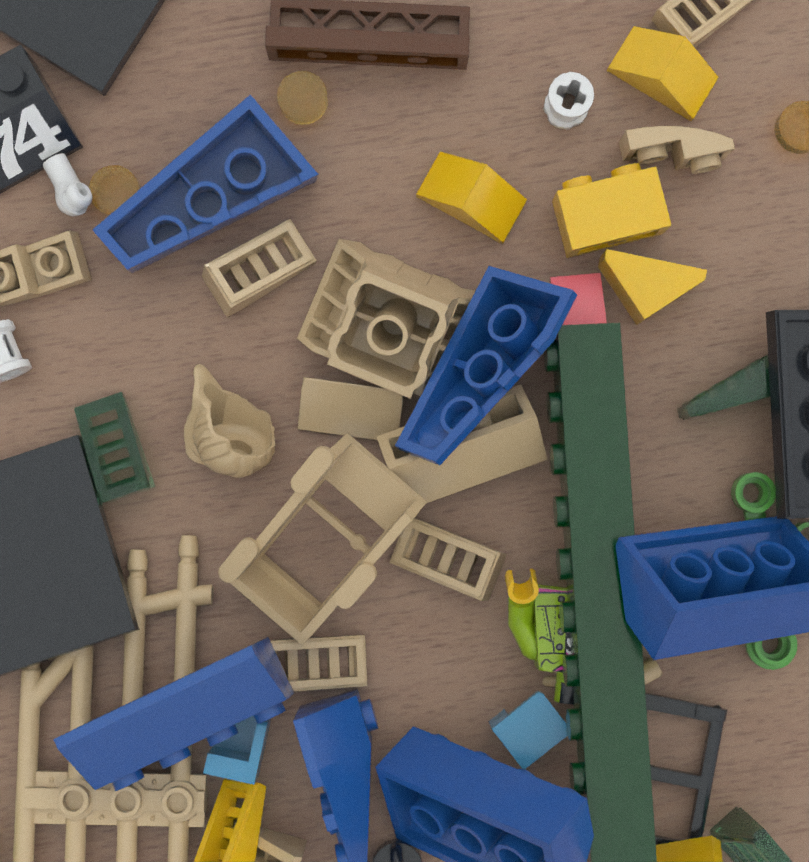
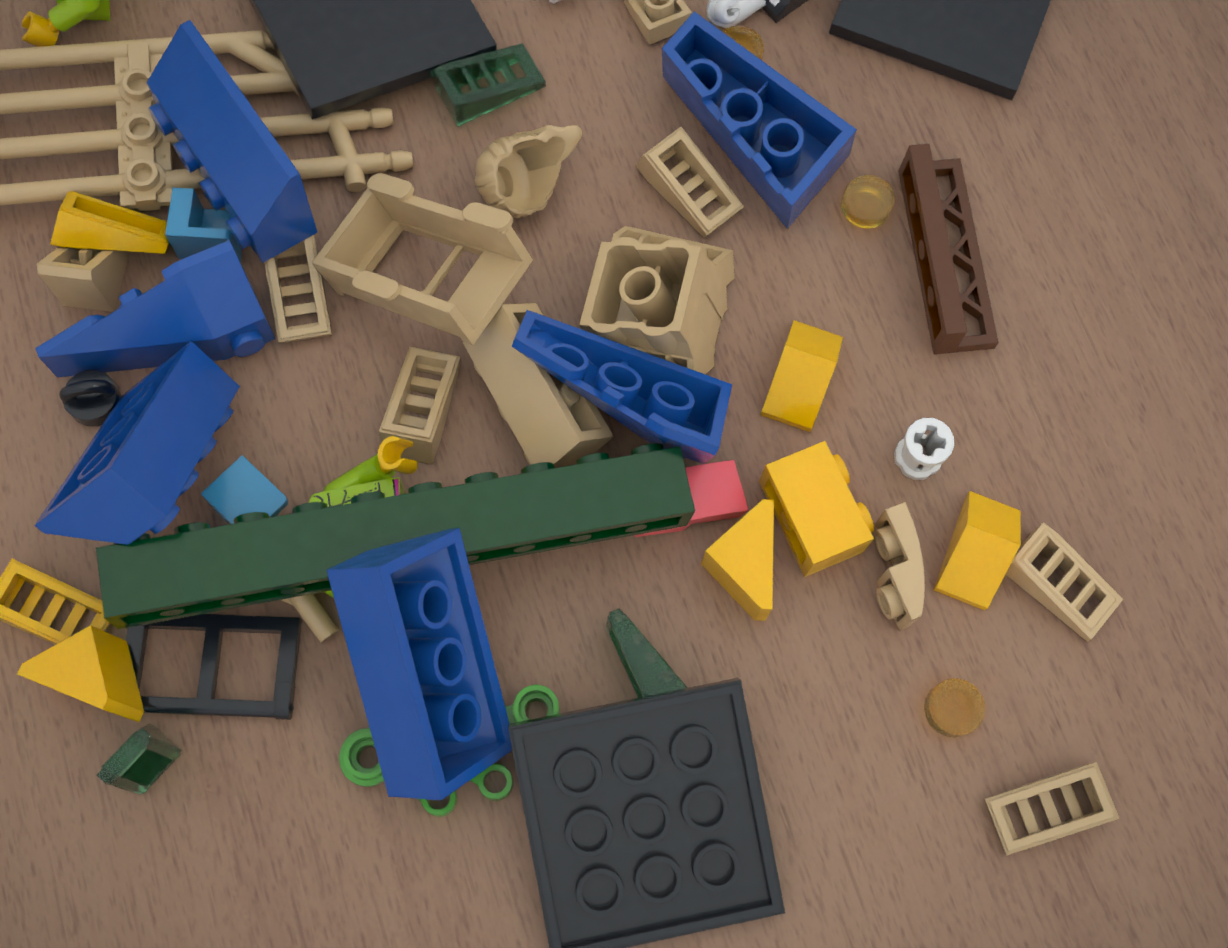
camera: 80 degrees right, 15 degrees down
(348, 409) = (561, 277): tan slope -> none

